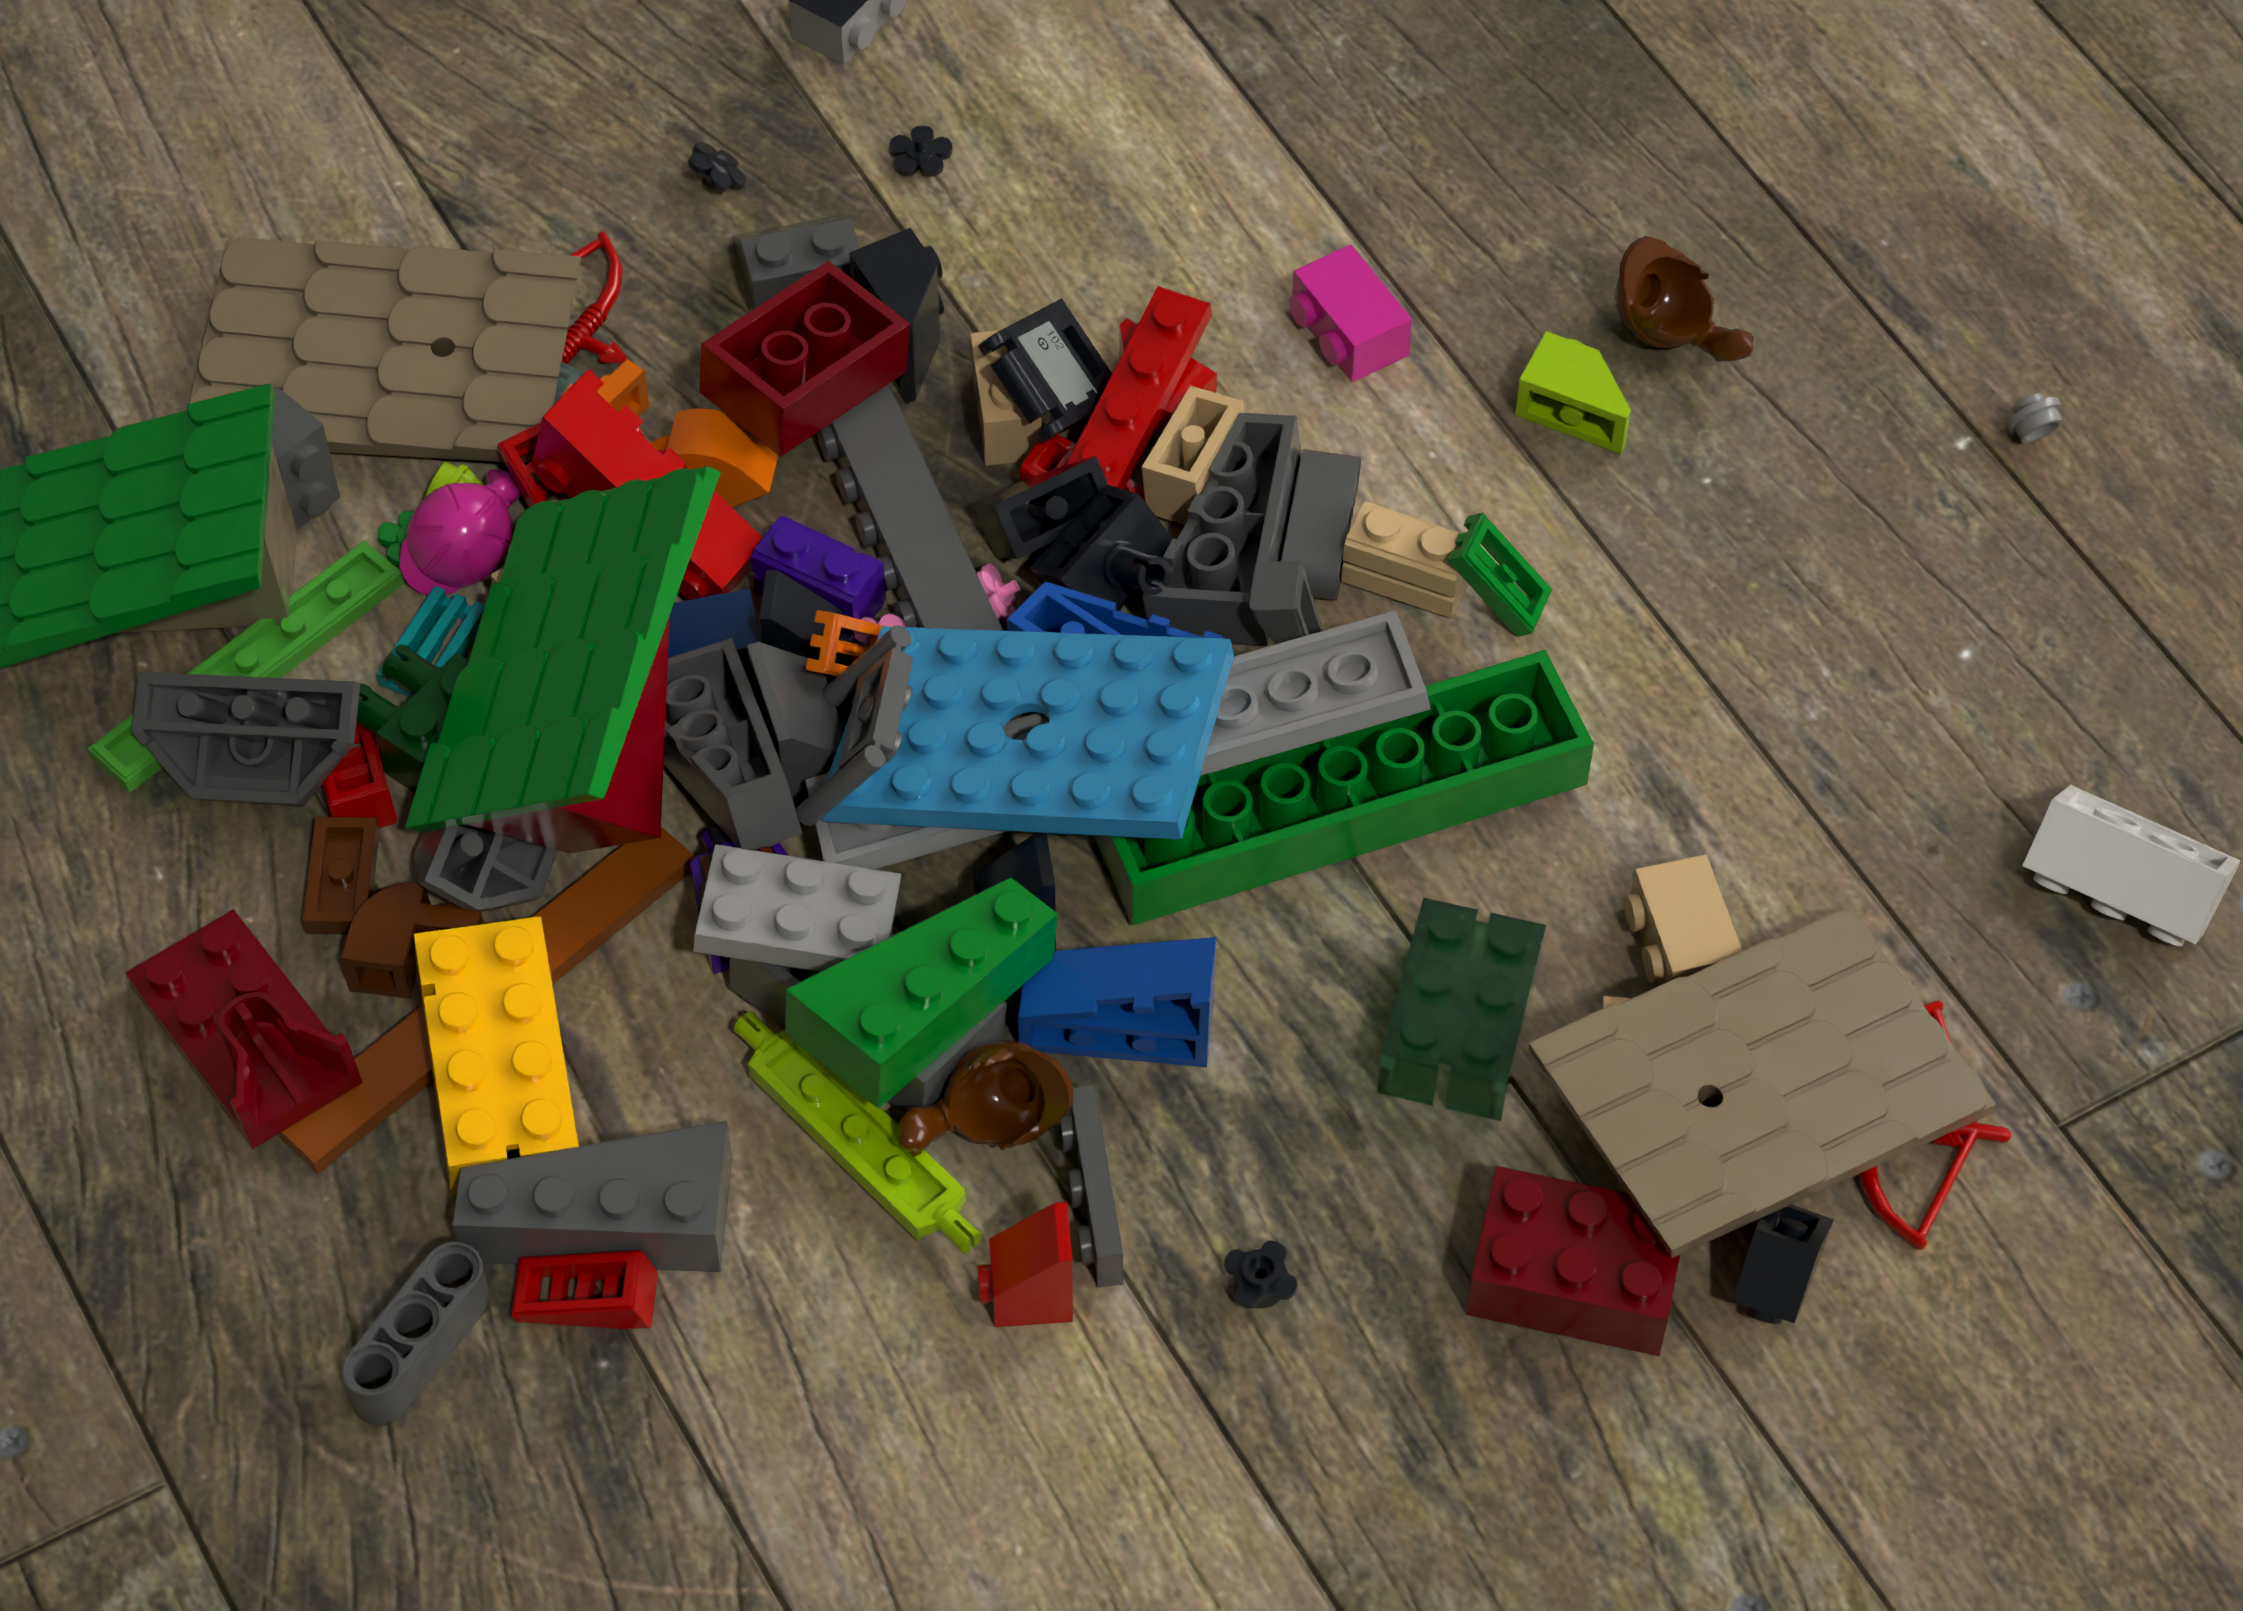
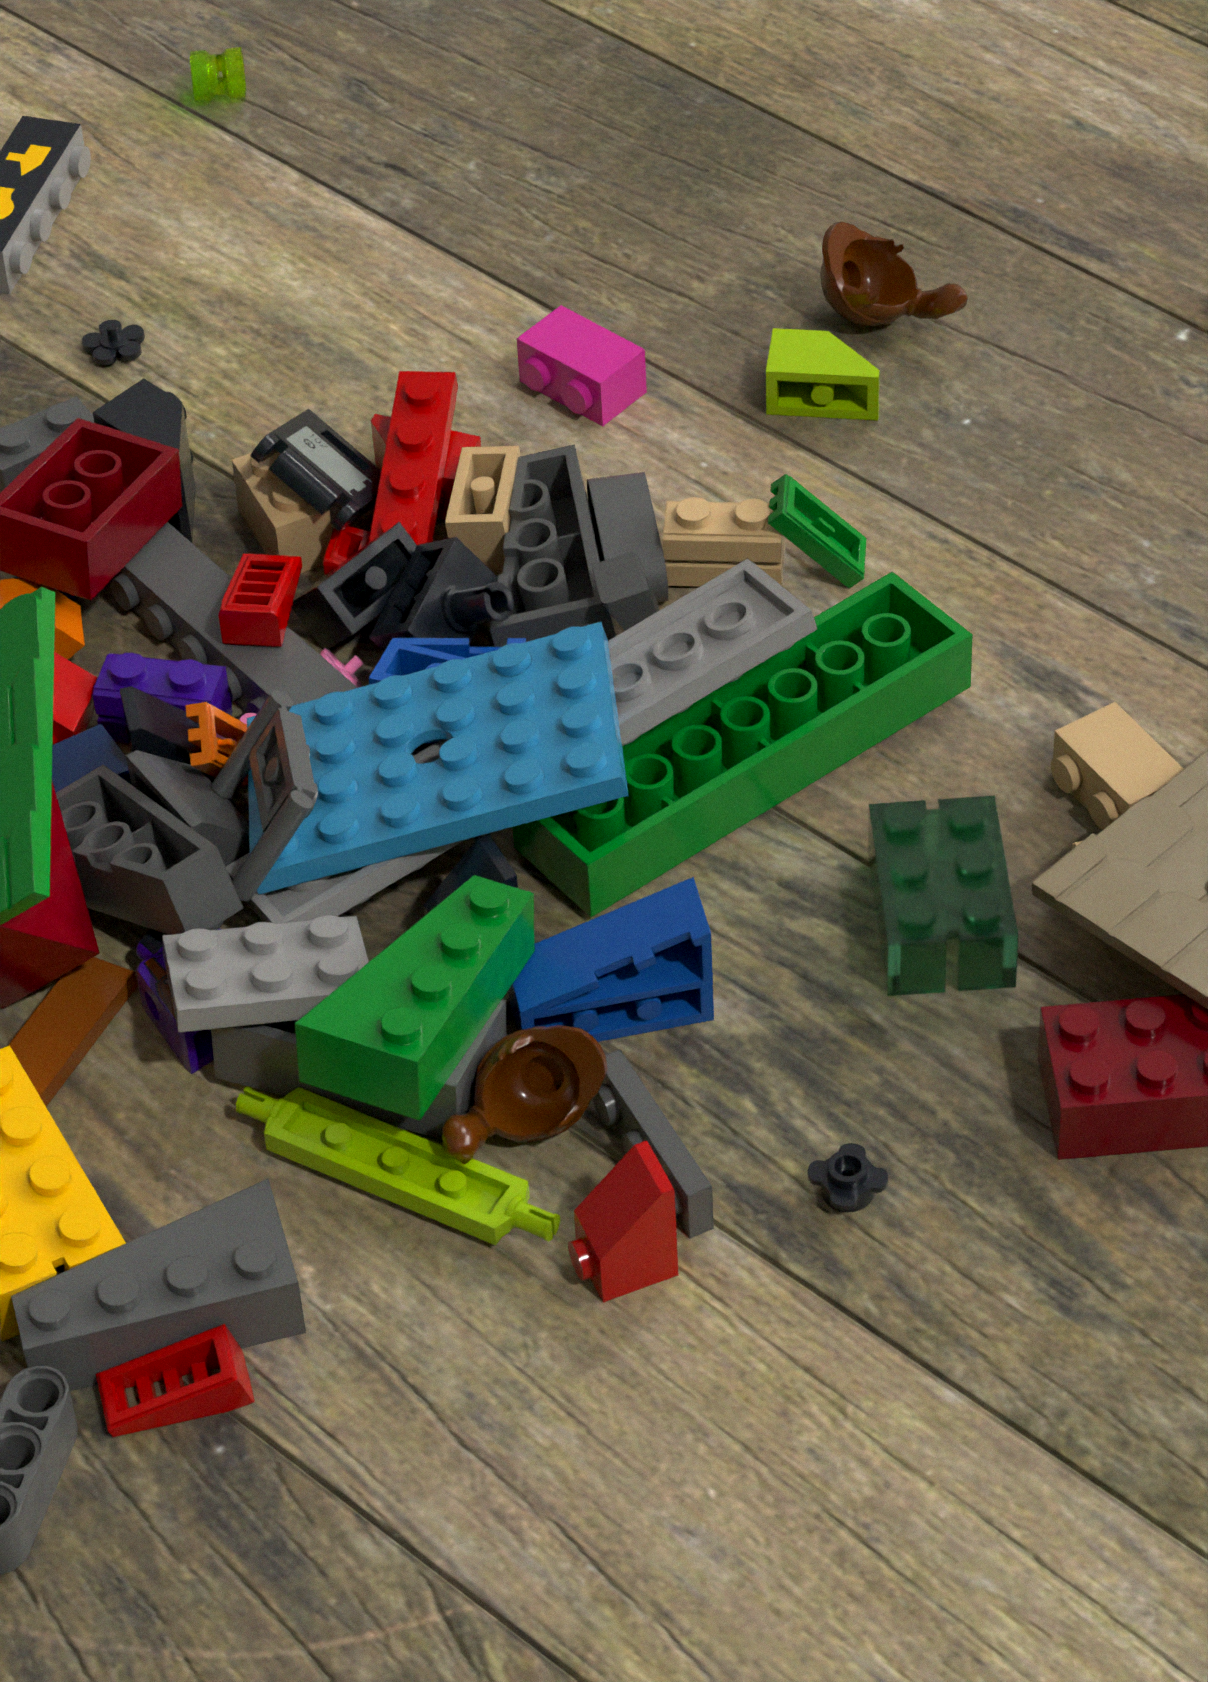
camera: 15 degrees left, 10 degrees down
(939, 530) = (259, 600): none -> red slope

